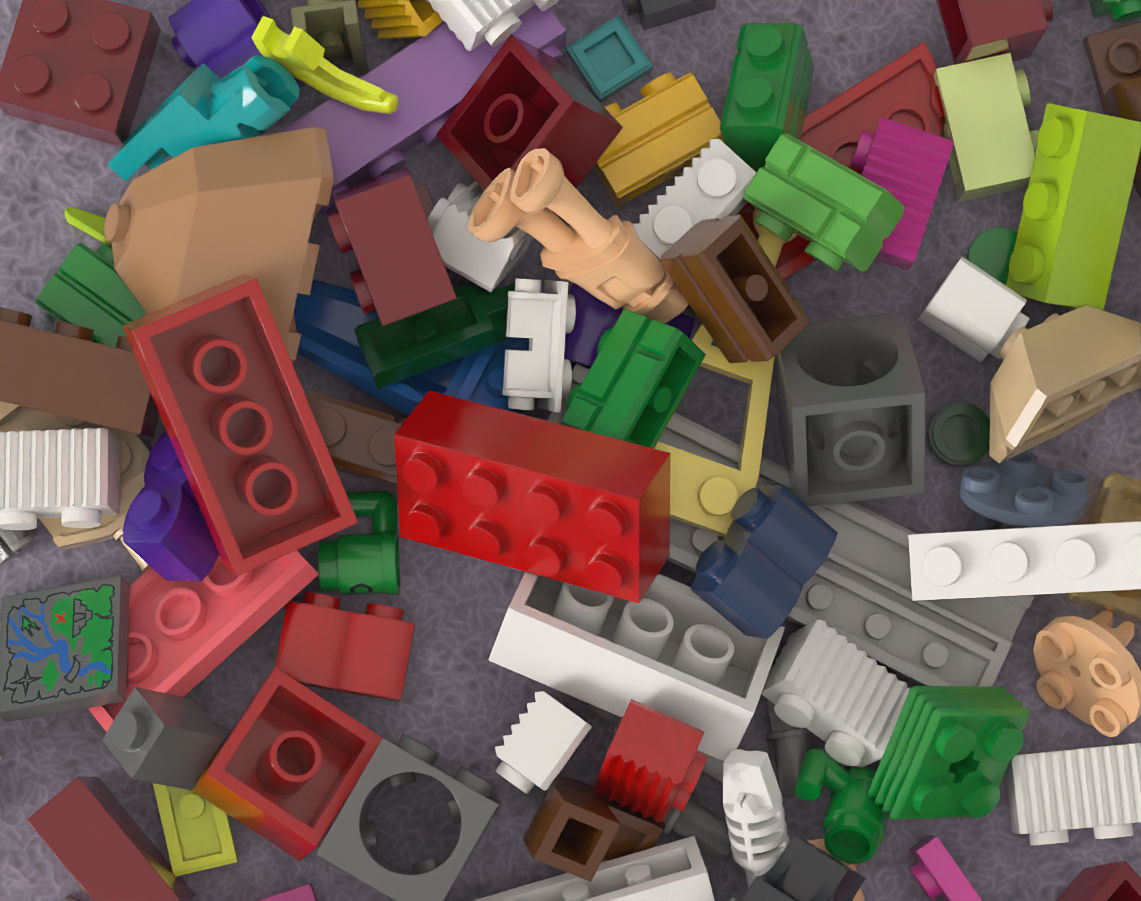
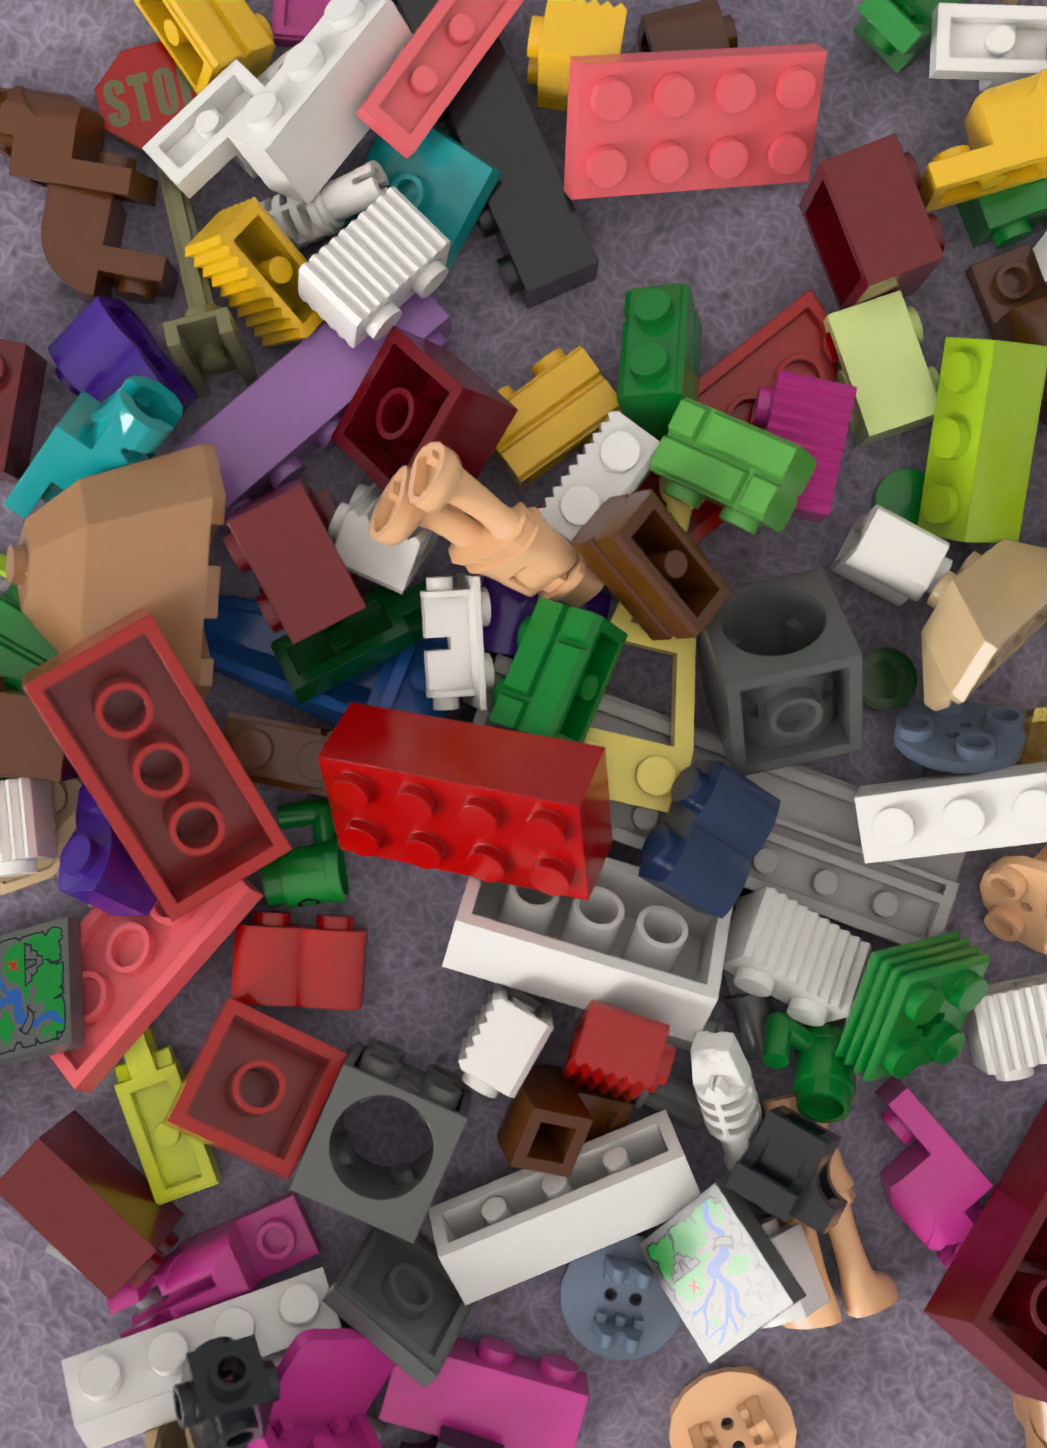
camera: 10 degrees left, 5 degrees up
(163, 738) = (123, 1084): dark grey brick -> none
(305, 61) = (184, 376): neon yellow piece -> none
(609, 59) = (496, 341): teal tile -> none

